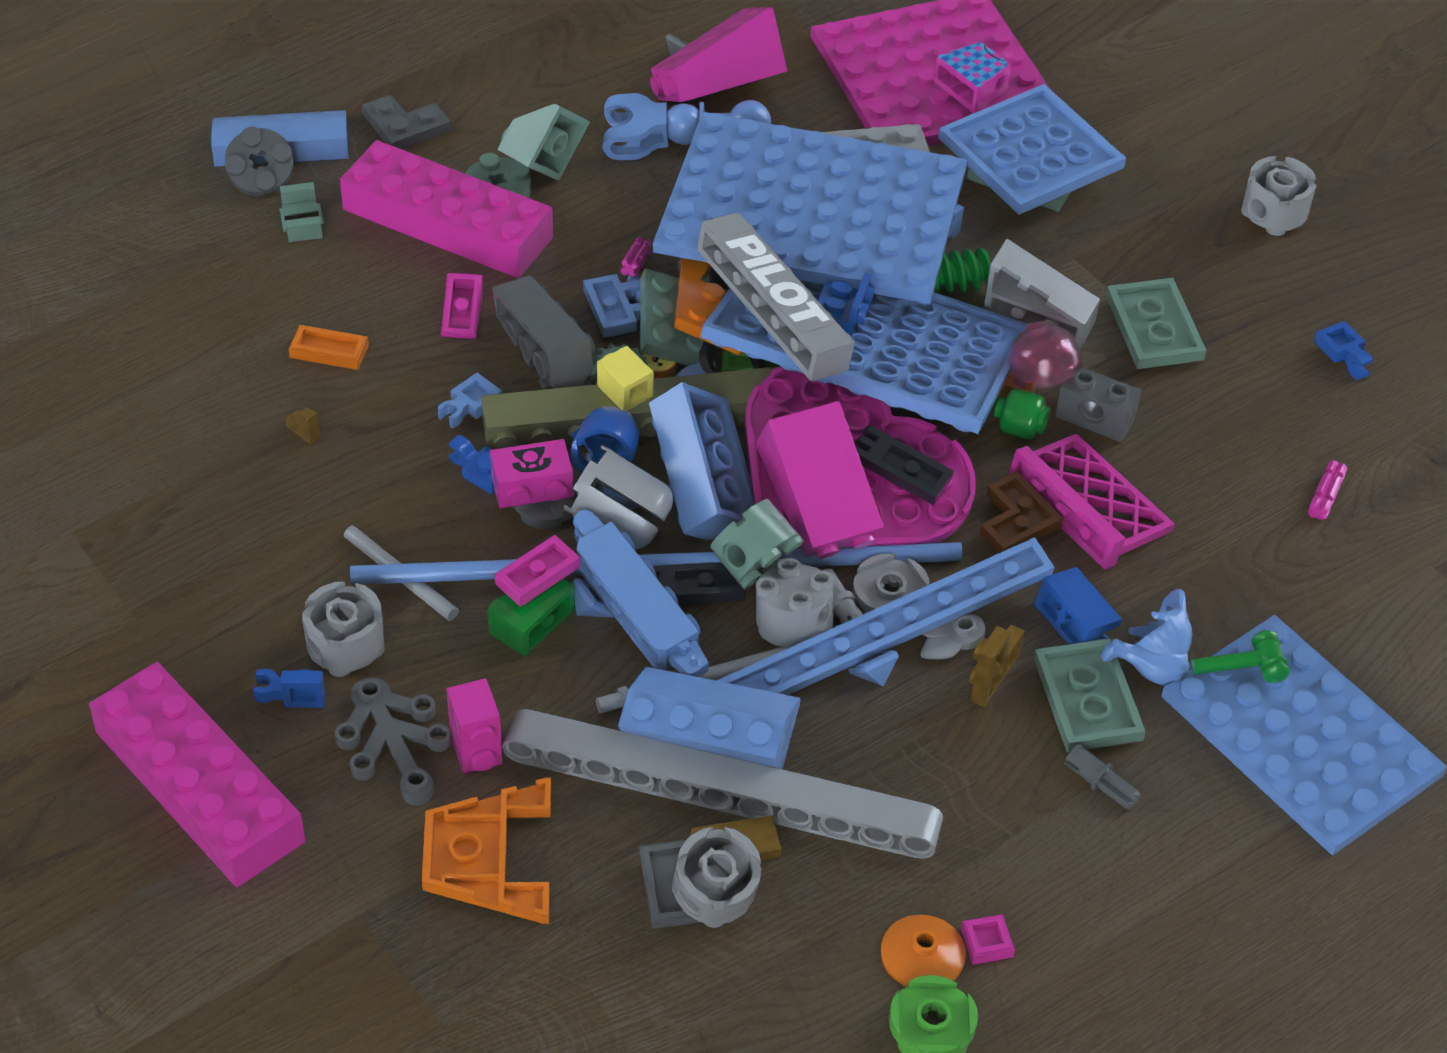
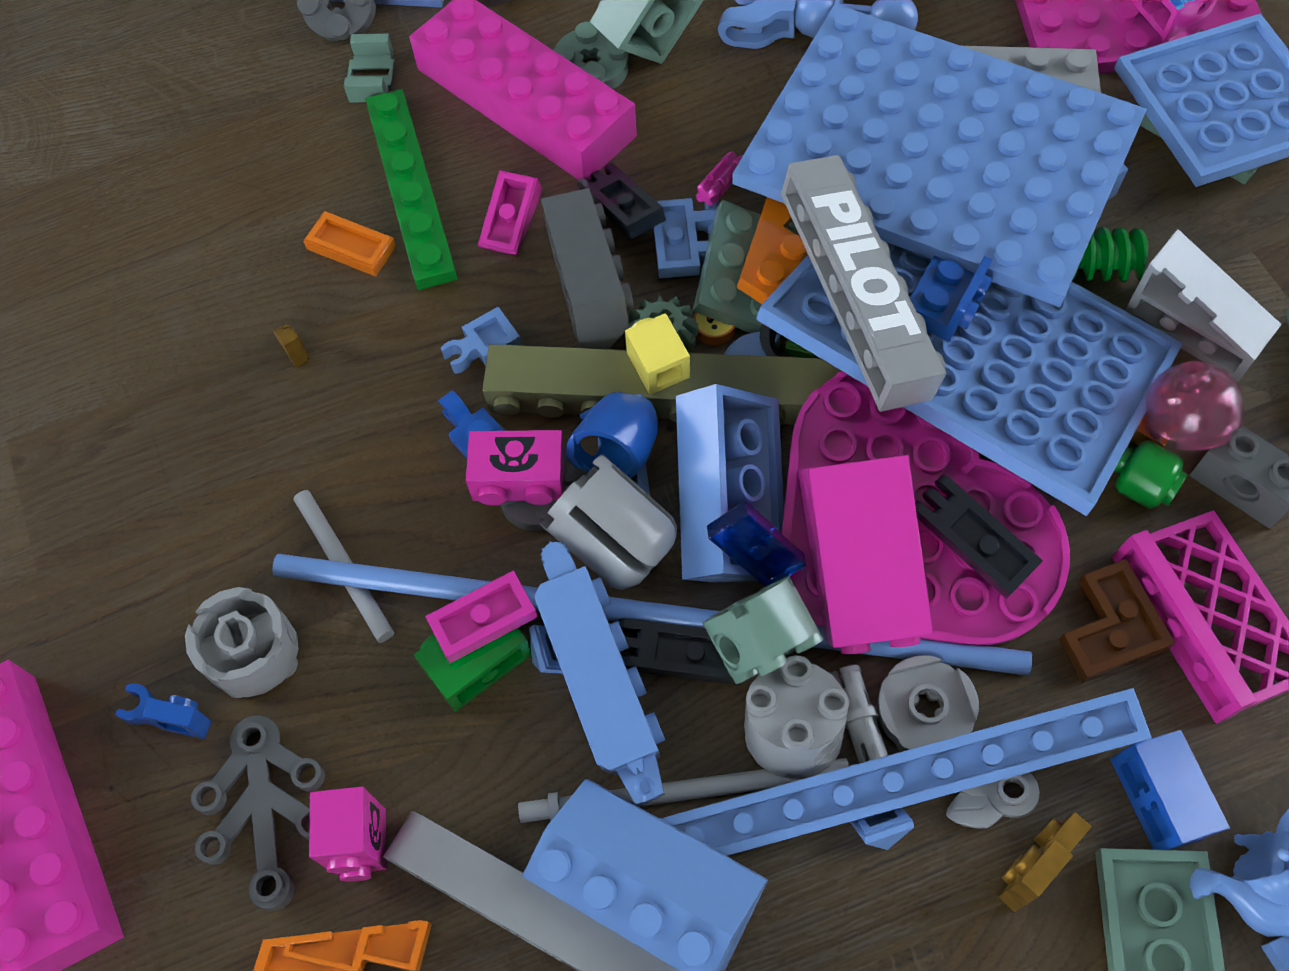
camera: 20 degrees right, 15 degrees up
(369, 299) = (411, 190): none -> green plate
(562, 282) = (623, 201): none -> black hinge
(735, 485) = (755, 544): none -> clear blue hinge

